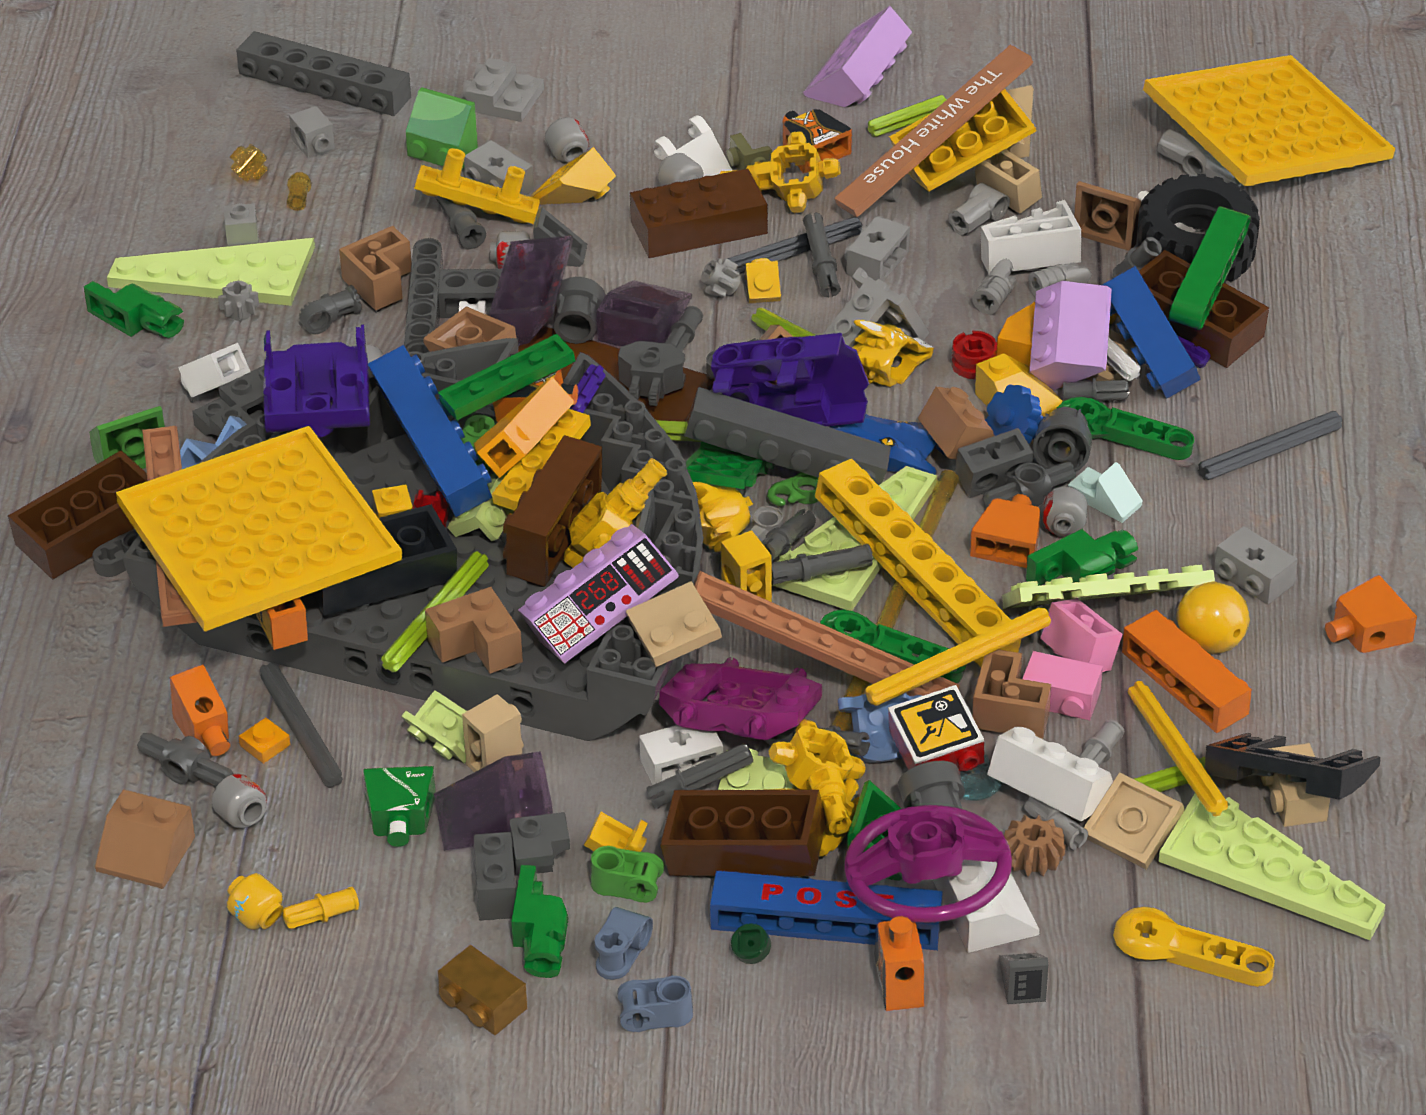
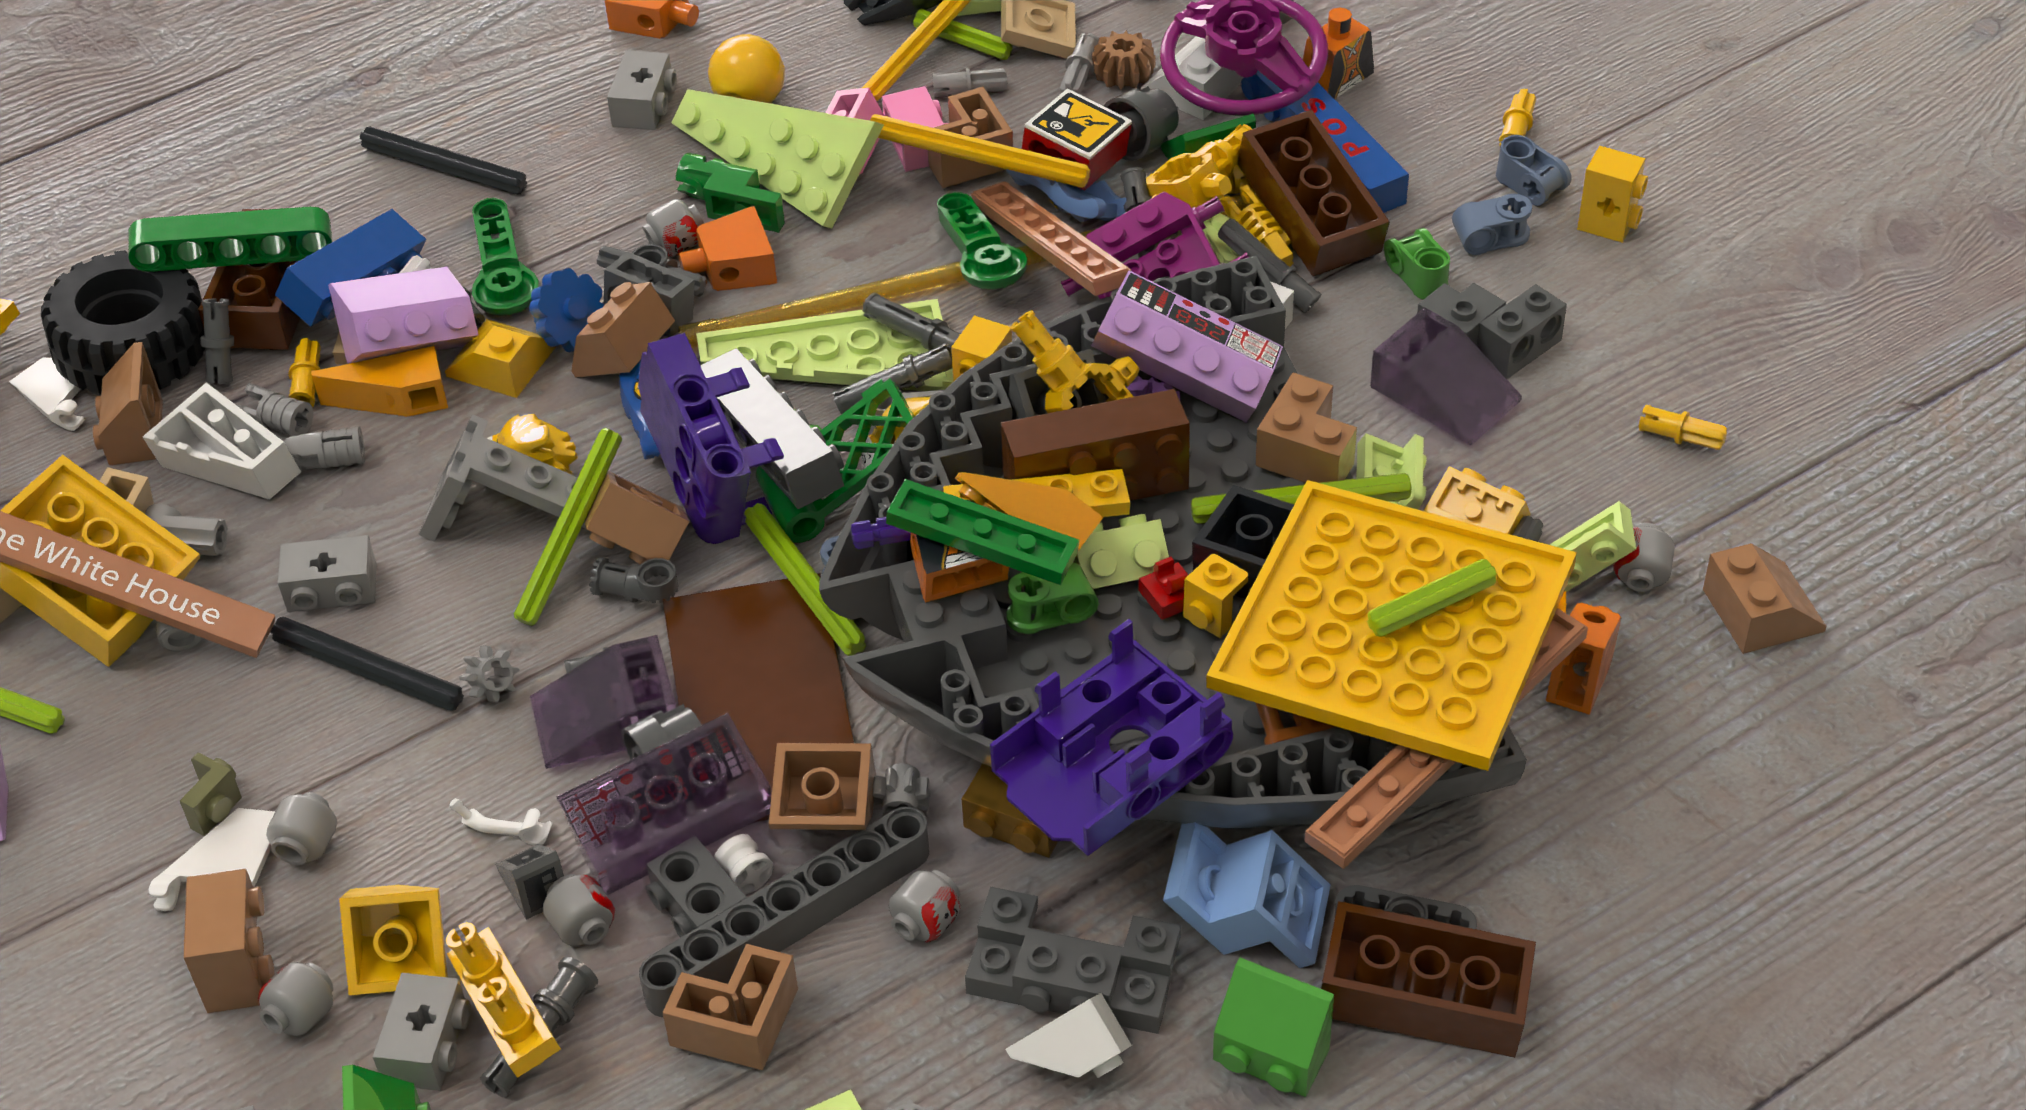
camera: 125 degrees left, 5 degrees up
(183, 759) = (1642, 641): dark grey axle -> none
(242, 530) = (1431, 597): none -> lime axle
(254, 901) = (1734, 467): yellow head -> none
(262, 759) = (1599, 542): none -> yellowish green bracket
(330, 307) = (865, 1026): dark grey connector -> none
(375, 751) = (1471, 500): none -> yellow bracket
(400, 801) = (1510, 447): green torso -> none
(430, 431) = (1088, 602): blue brick -> none
(482, 990) = (1642, 271): pearl gold brick -> none
(491, 732) = (1382, 402): tan brick -> none
(538, 925) = (1544, 266): green plate -> none
(563, 1006) = (1612, 193): none -> yellow brick
(597, 260) = (529, 830): none -> white piece
(610, 832) = (1386, 287): yellow bracket -> none
(618, 112) = (223, 940): none -> medium nougat brick
(651, 369) = (731, 617): dark grey hinge -> none
(673, 624) = (1184, 257): tan plate -> none
(698, 213) = (371, 767): reddish brown brick -> none
(725, 1044) = (1519, 117): none -> yellow axle
(751, 943) = (1407, 156): dark green tile -> none
(762, 281) = (452, 641): yellow bracket -> none
(770, 174) = (243, 738): yellow piece -> none
(822, 131) = (126, 752): torso -> none
(824, 264) = (390, 604): dark grey pin -> none
(909, 554) = (850, 270): yellow brick -> none
(971, 350) = (456, 403): red wheel -> none
(1049, 773) = (1040, 64): white slope -> none
(1062, 438) = (565, 251): dark grey piece -> none
(1108, 492) = (609, 226): light aqua slope -> none
(1186, 671) = (826, 61): orange brick -> none

